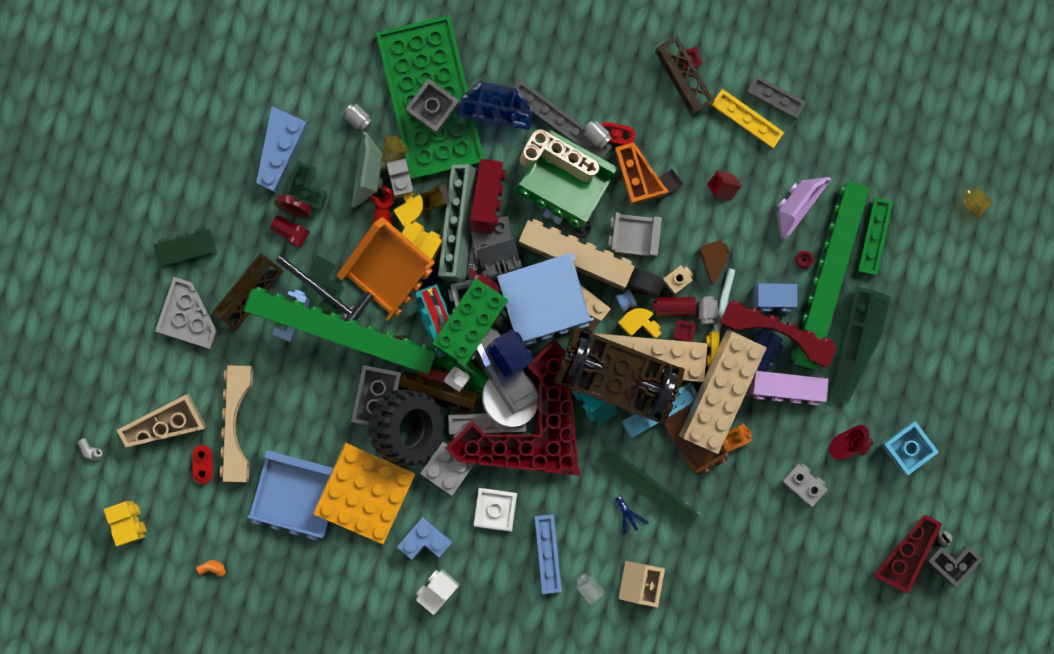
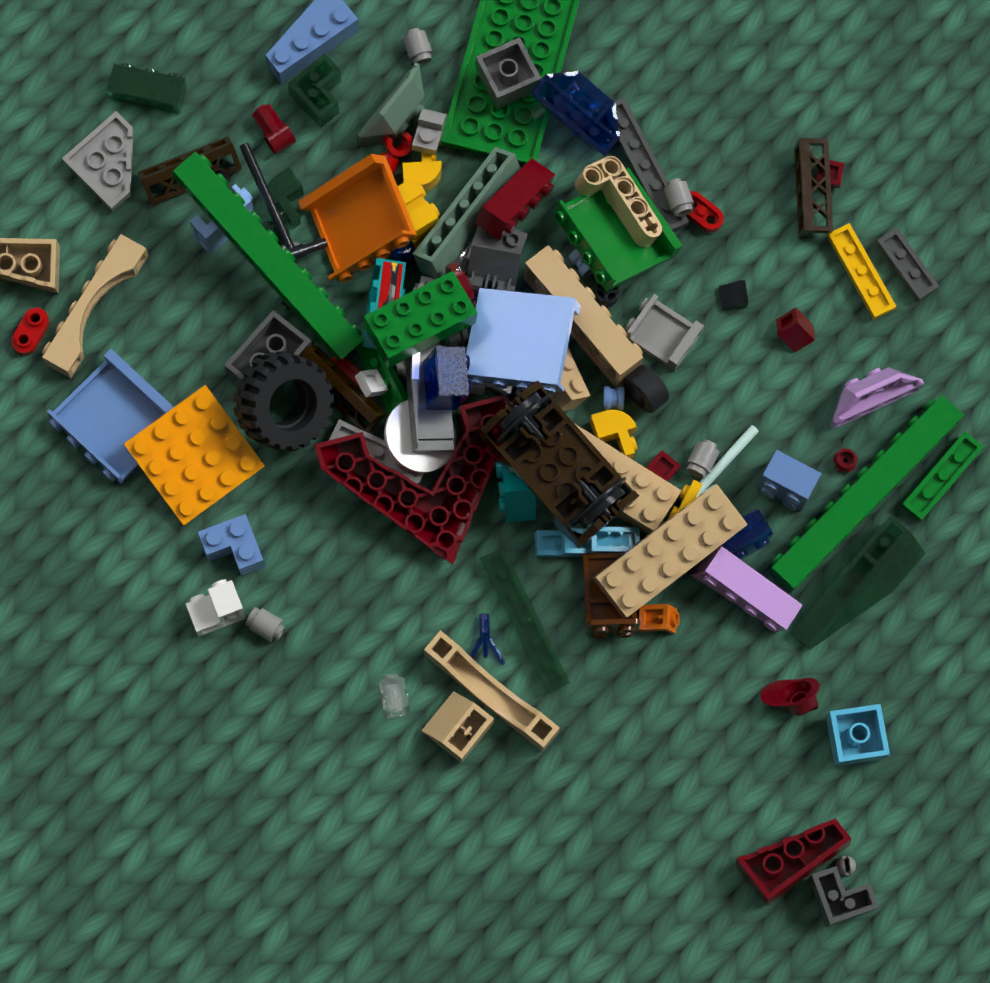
camera: 25 degrees right, 10 degrees down
(293, 208) = (290, 103): dark red tile -> none
(393, 148) = (440, 99): clear yellow panel -> none
(435, 198) = (456, 174): dark brown tile -> none
(445, 470) = (303, 480): light grey brick -> none
(475, 583) = (265, 624): none -> light grey brick
(495, 509) = (334, 554): white plate -> none
(548, 554) = (367, 636): medium blue plate -> none
(638, 177) = (701, 270): orange wedge -> none
(652, 548) = (500, 700): none -> tan arch
(674, 306) = (666, 434): dark red brick -> none
(675, 286) = (680, 413): tan brick -> none
(714, 257) = (741, 404): reddish brown slope -> none
(804, 484) = (710, 714): light grey brick -> none
(815, 349) = (736, 482): dark red arch -> none

